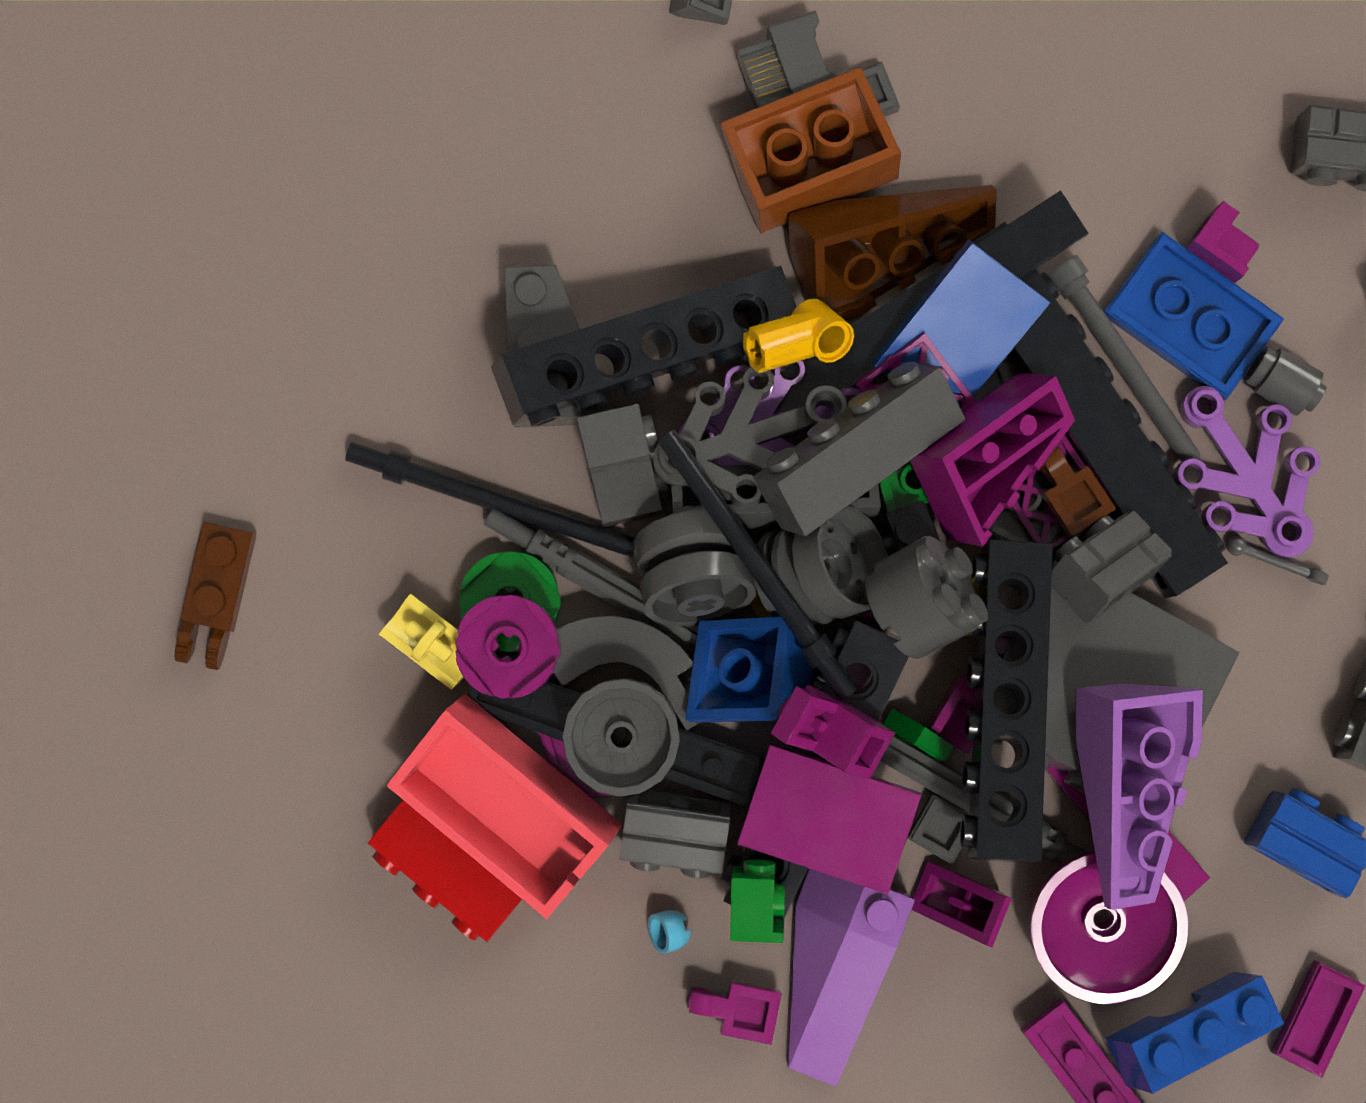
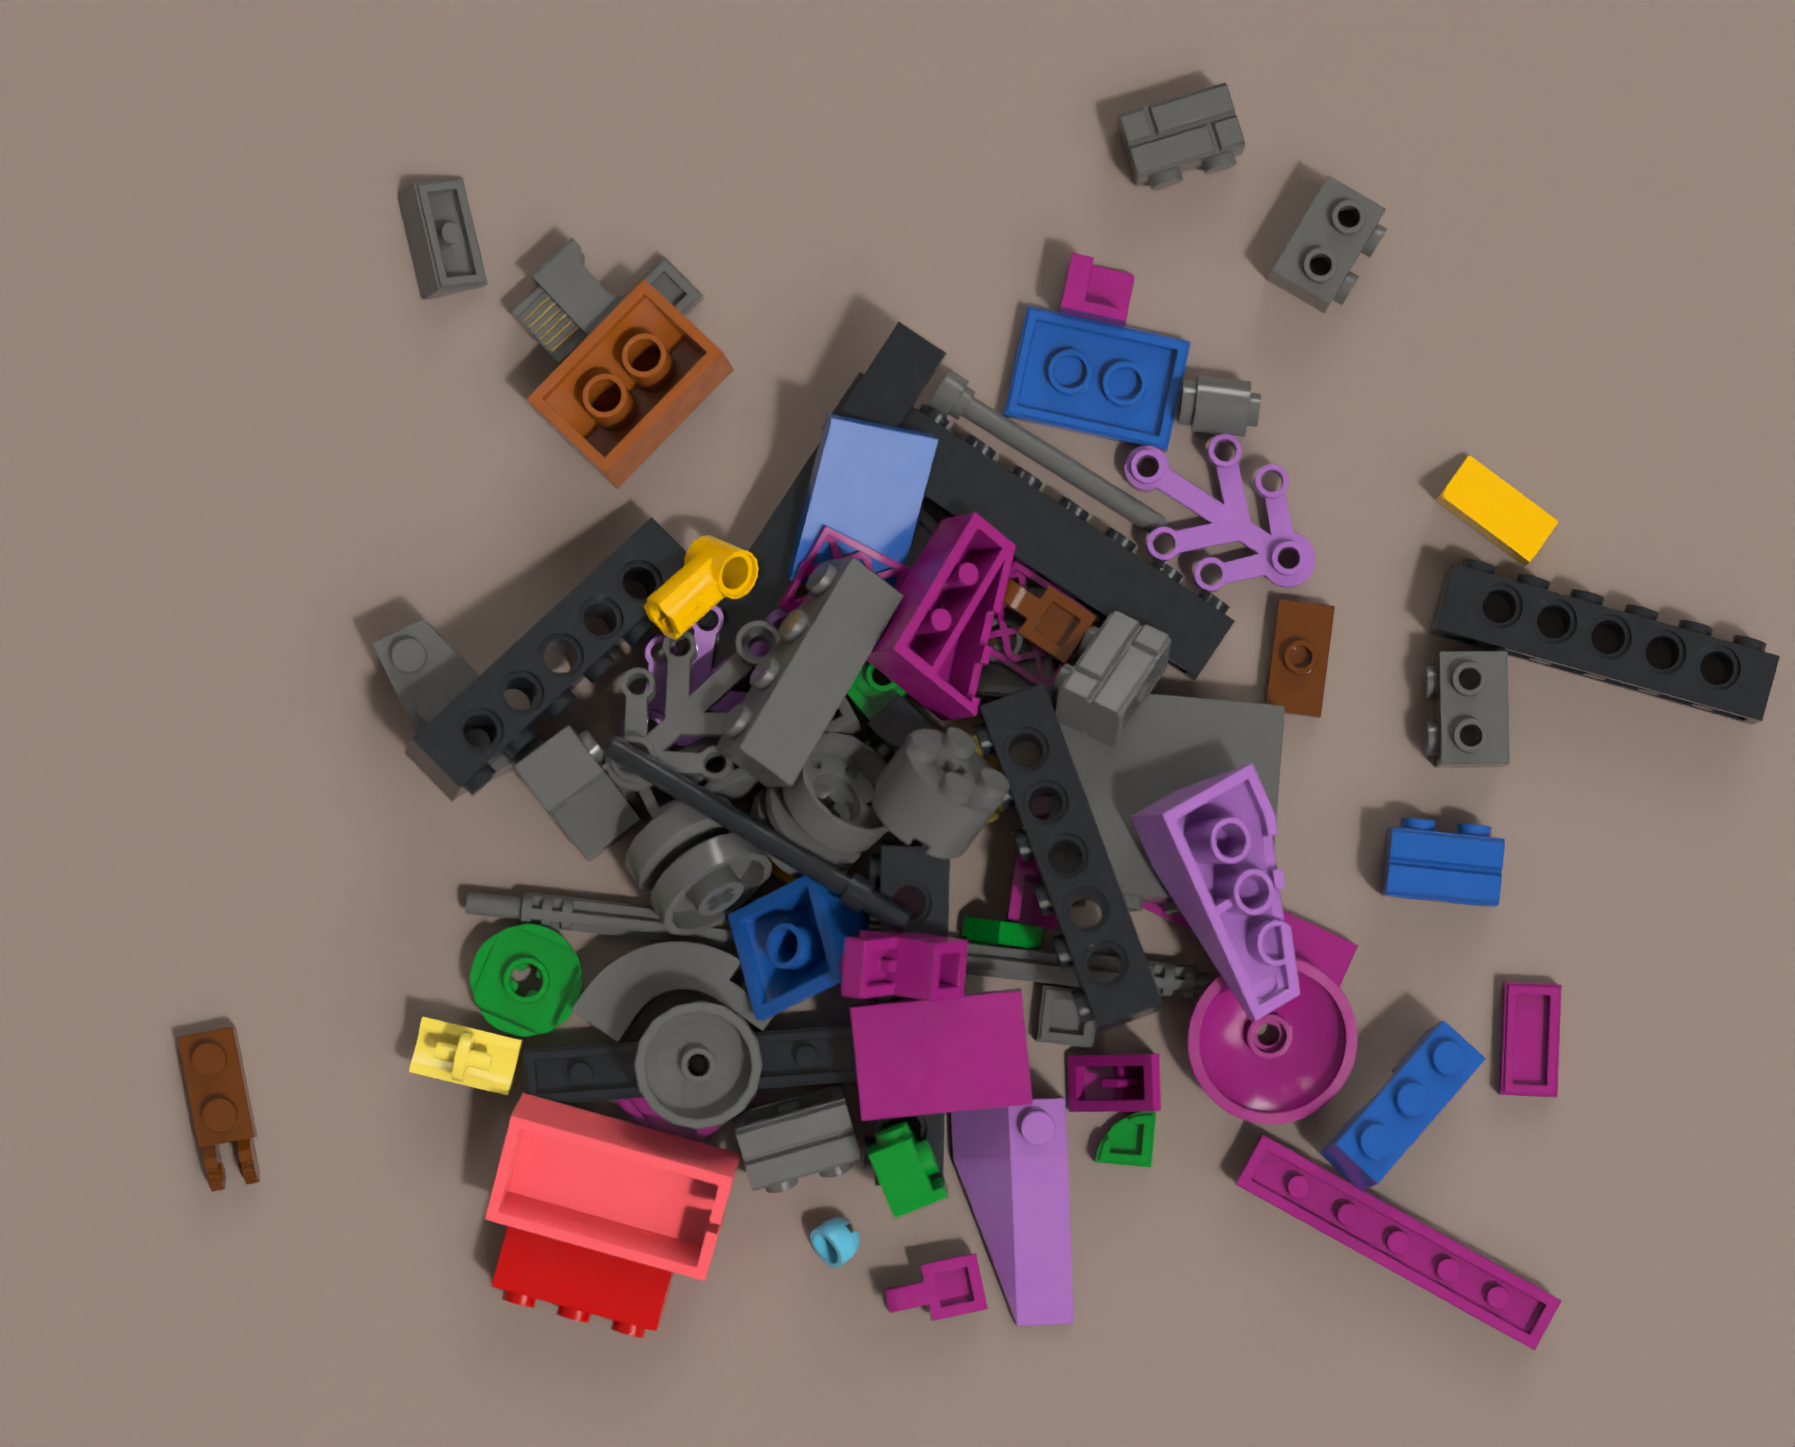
camera: 20 degrees left, 0 degrees up
(399, 468) = (352, 894): black bar -> none
(478, 643) = (515, 1038): magenta plate -> none
(868, 245) = (733, 454): reddish brown wedge -> none
(947, 955) = (1129, 1141): none -> green tile
(1238, 546) = (1244, 594): dark grey hinge -> none
(1263, 616) = (1299, 657): none -> reddish brown plate

